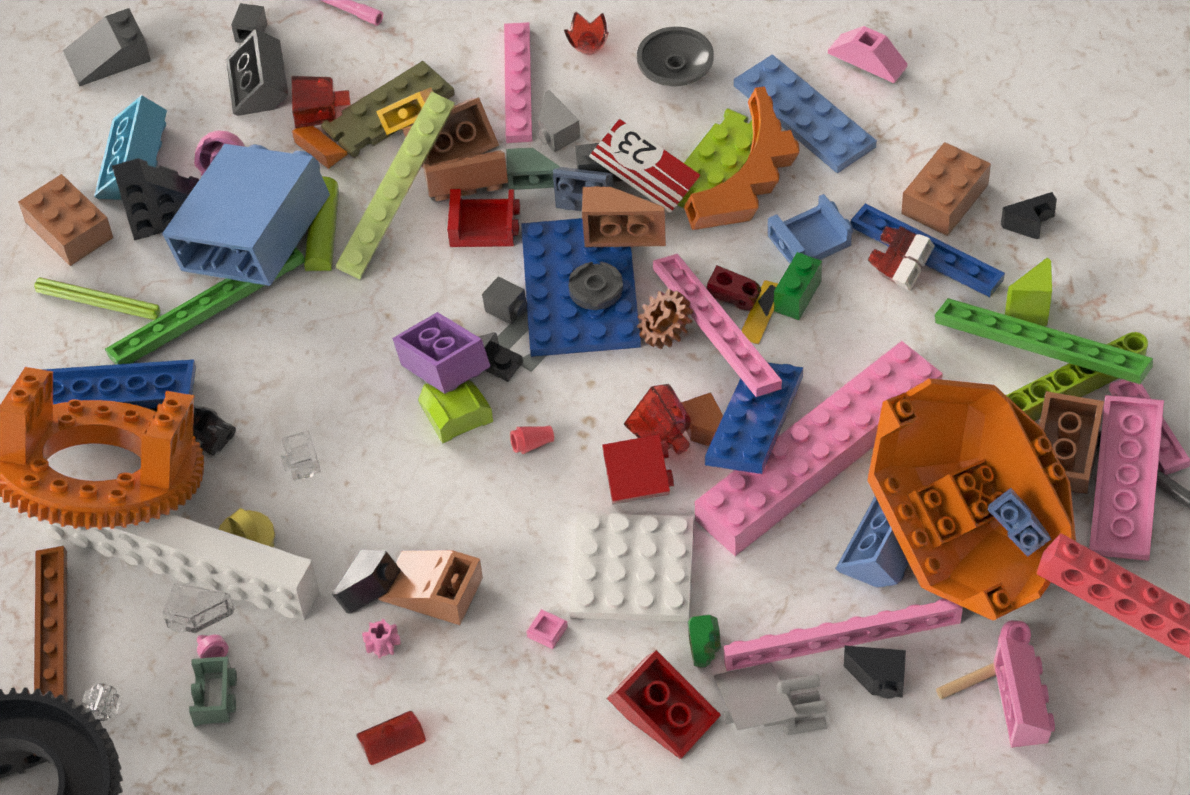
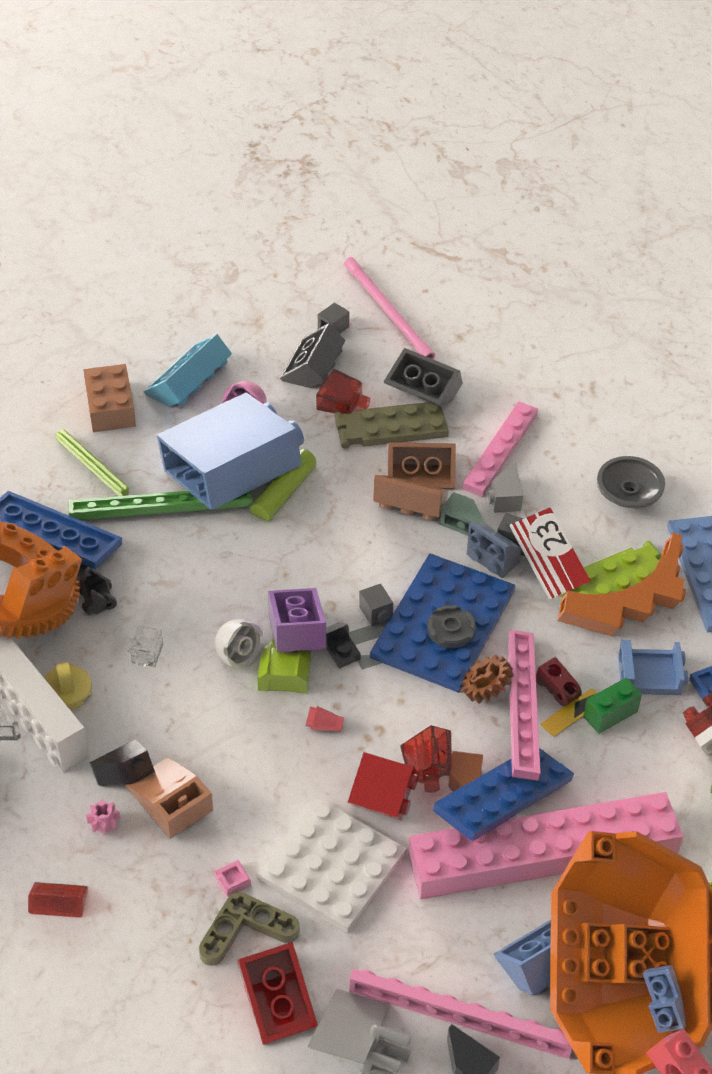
camera: 25 degrees right, 5 degrees down
(107, 48) = (225, 294): dark grey slope -> none
(150, 195) = (169, 402): black brick -> none
(318, 145) = (323, 427): orange slope -> none
(393, 43) = (424, 378): none -> dark grey slope
(394, 405) = (238, 643): none -> white cylinder
(395, 185) = (351, 480): yellowish green plate -> none
(403, 112) = (401, 431): yellow slope -> none
(482, 221) = (401, 537): red panel -> none
(580, 661) = (240, 917): none -> olive beam
(587, 36) = (573, 436): clear red piece -> none
(621, 219) = (498, 583): nougat slope -> none
(703, 639) = (344, 954): green rock -> none

